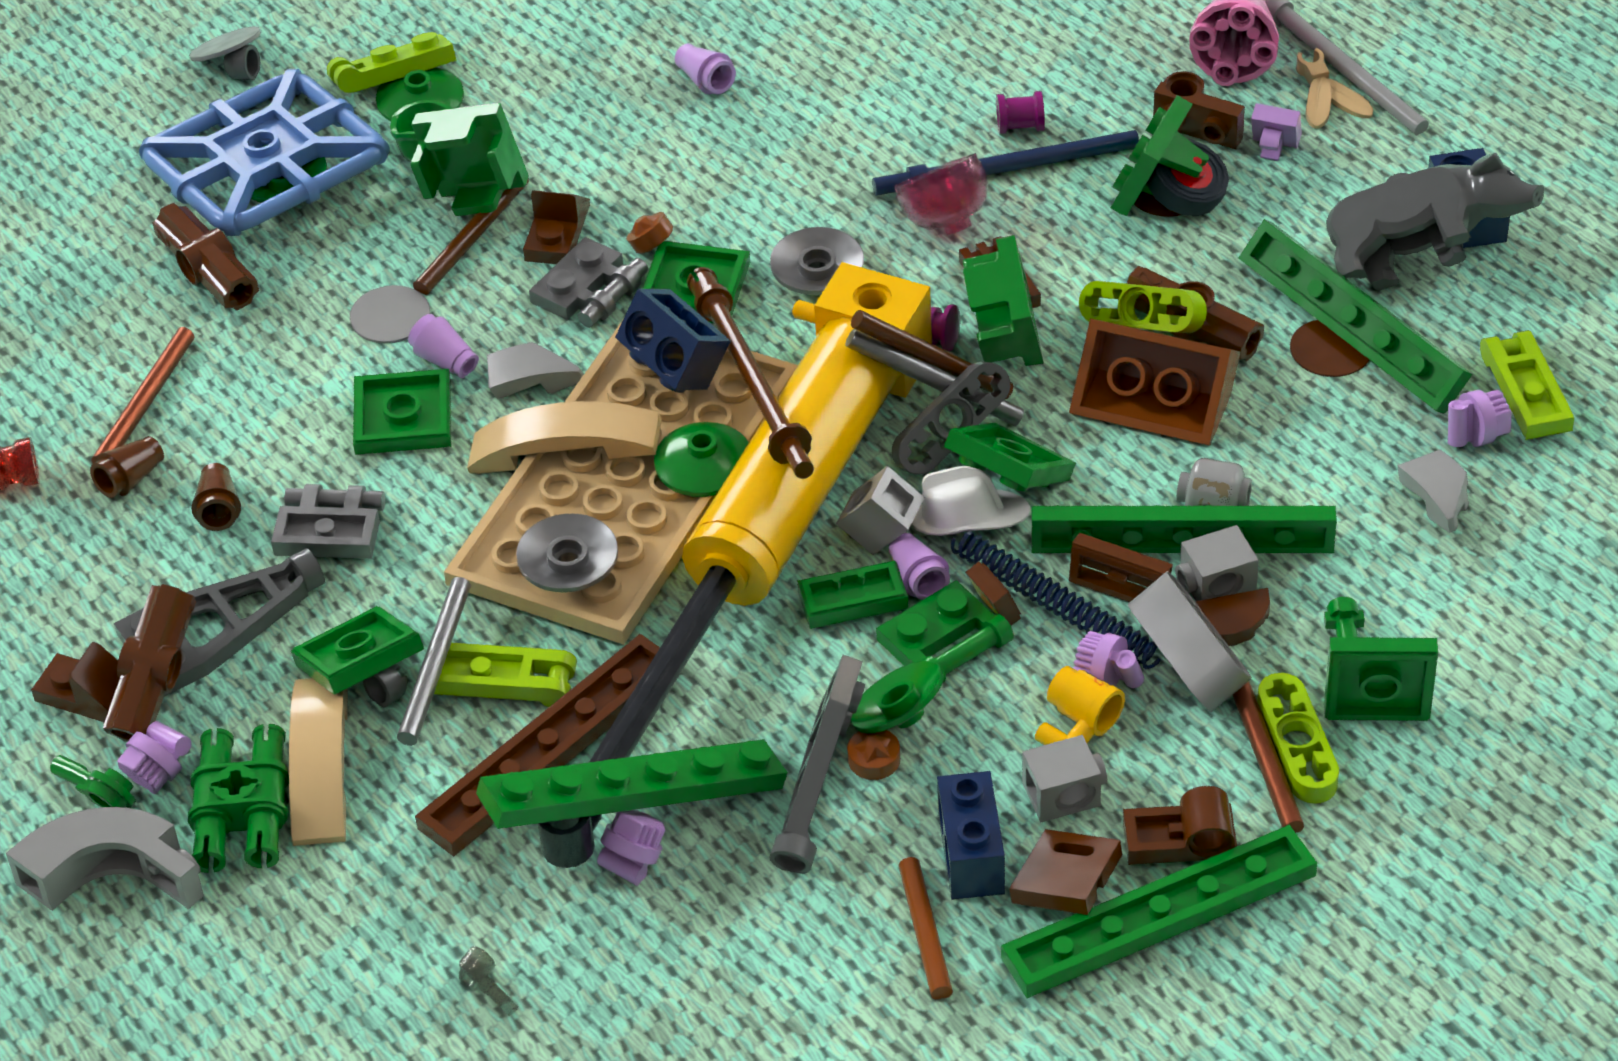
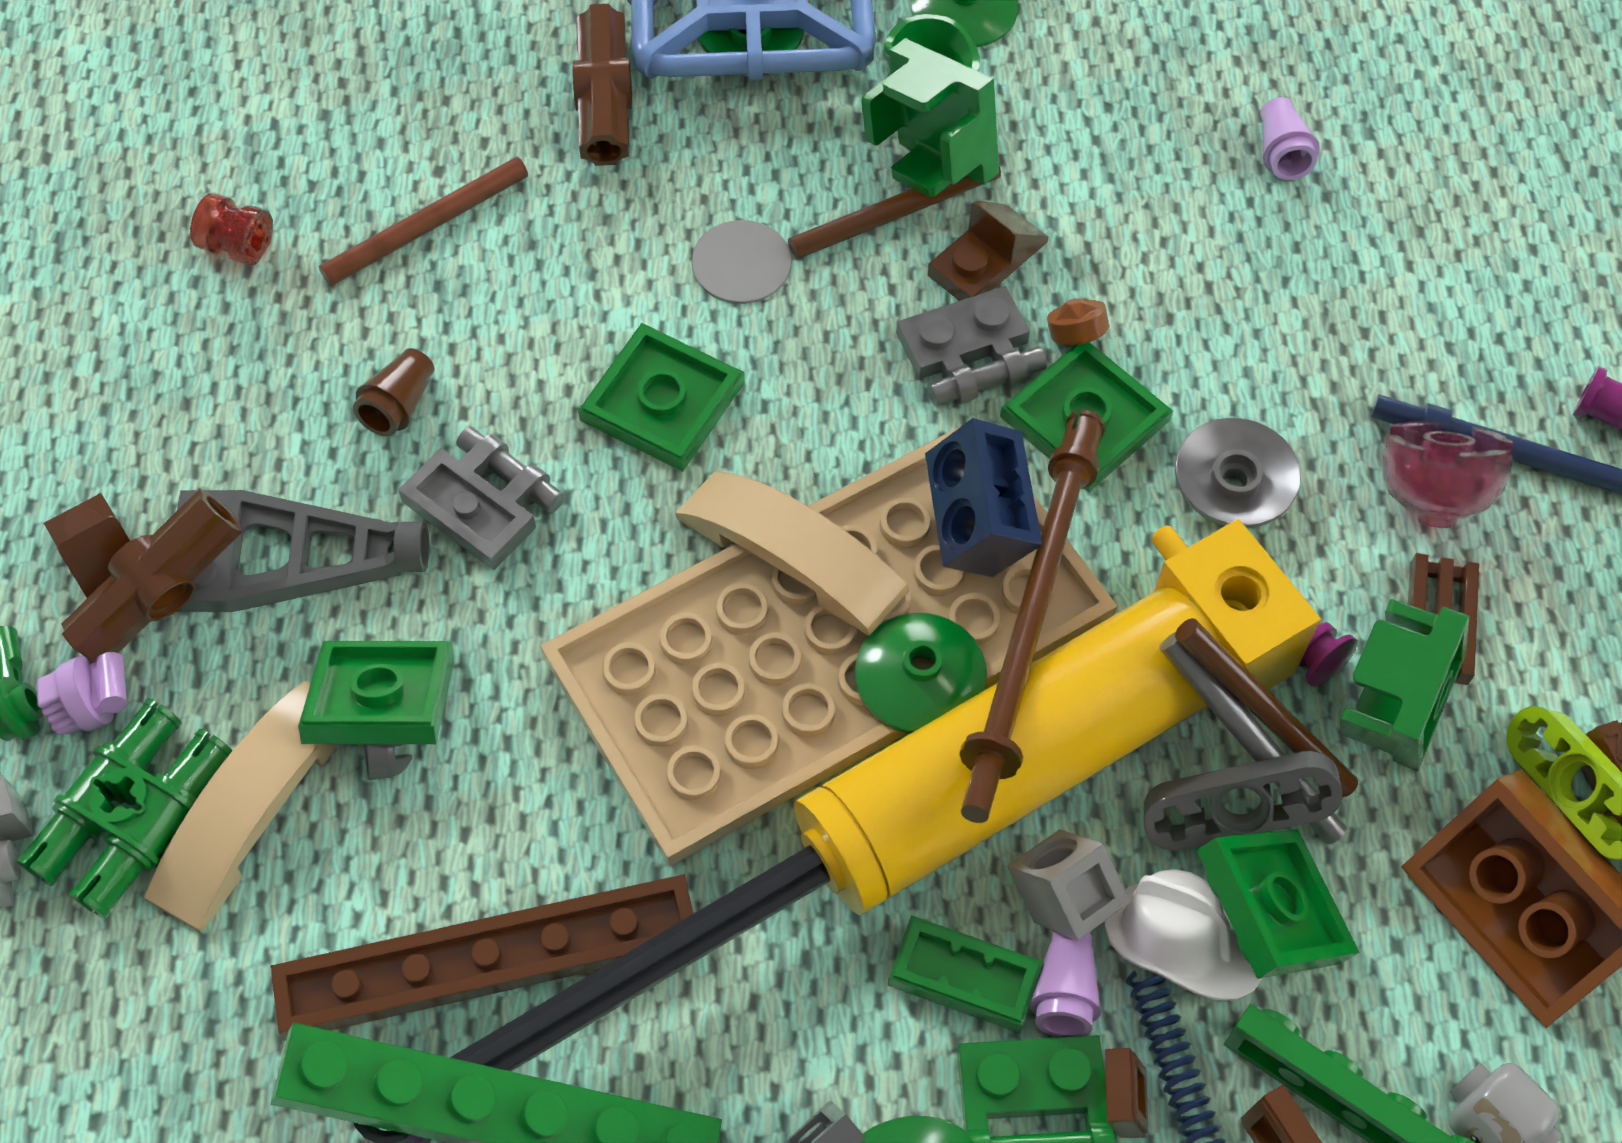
camera: 30 degrees right, 15 degrees up
(125, 466) = (340, 298): reddish brown cone -> none
(433, 661) = (435, 767): flat silver bar -> none
(441, 345) = (756, 339): lavender cone -> none
(506, 672) = (506, 819): lime plate -> none
(526, 366) = (824, 421): light grey slope -> none
(567, 552) = (664, 692): flat silver dish -> none

